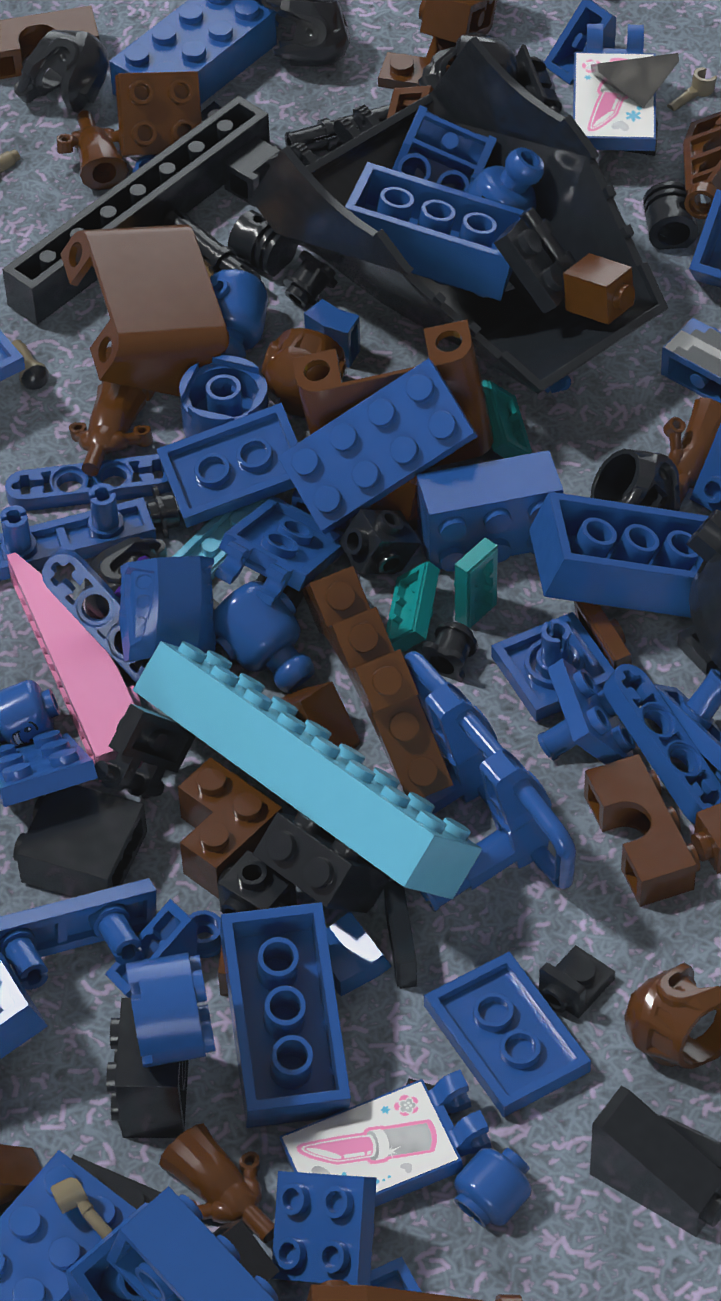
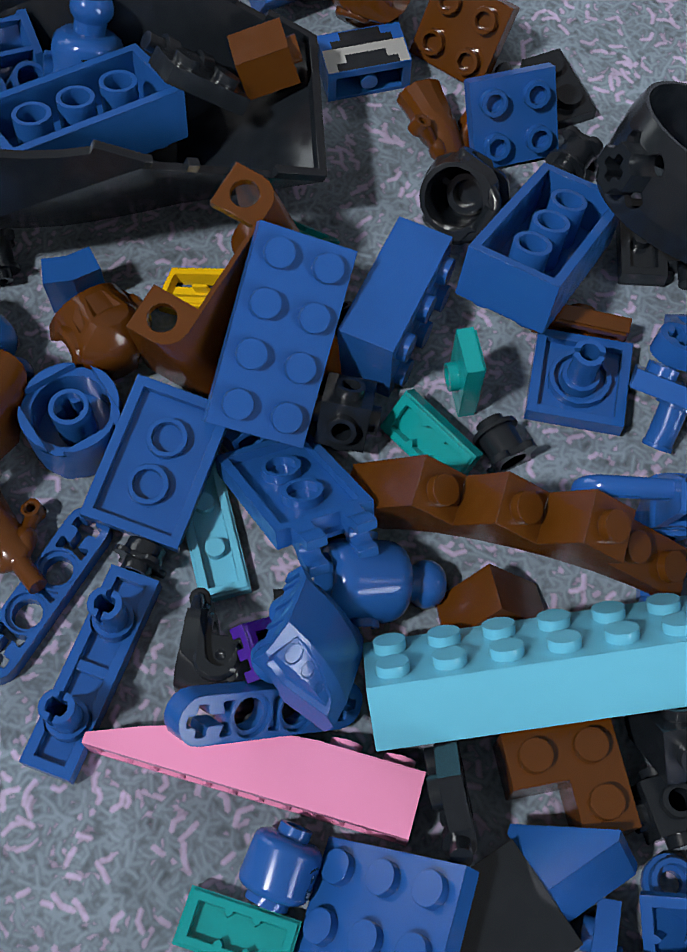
camera: 55 degrees left, 15 degrees up
(155, 849) = (575, 862): none -> blue slope

